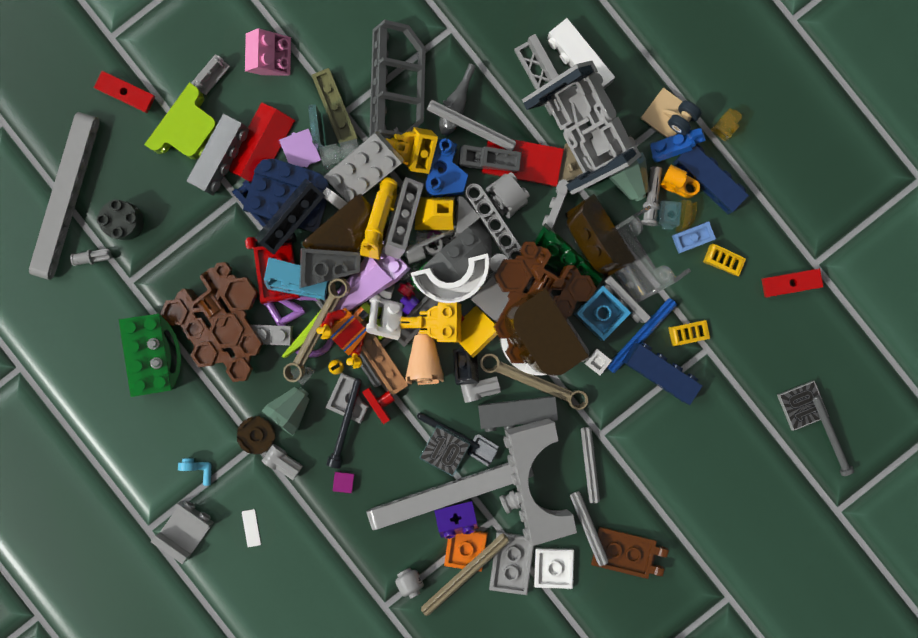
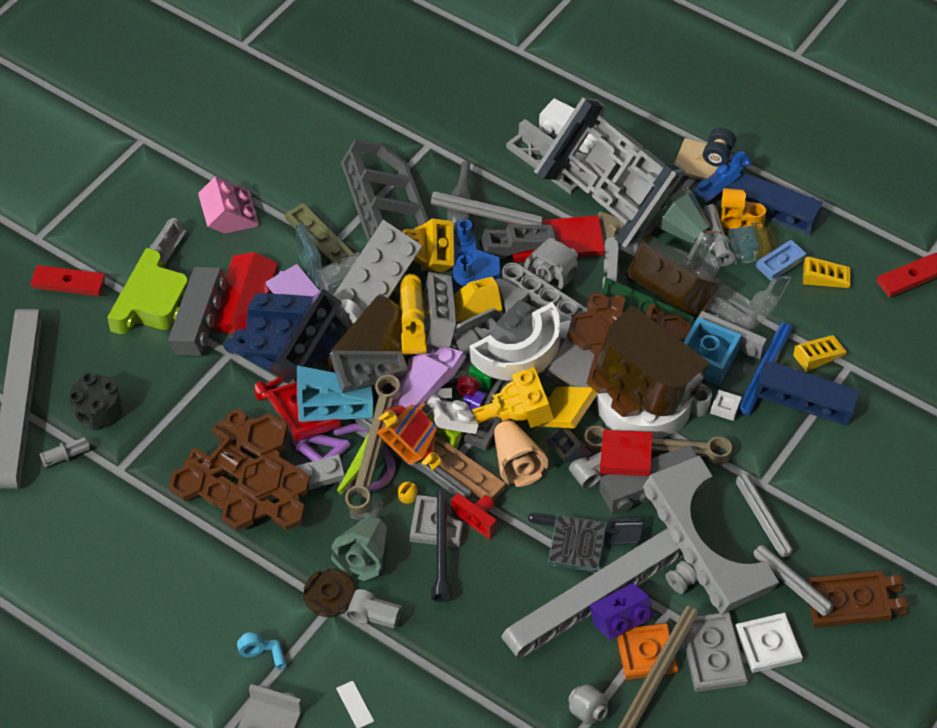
camera: 15 degrees left, 35 degrees down
(148, 354) = (165, 530): green piece -> none
(343, 482) = (460, 615): magenta tile -> none
(504, 392) = (626, 453): none -> red tile
(727, 124) = (769, 152): clear yellow brick -> none

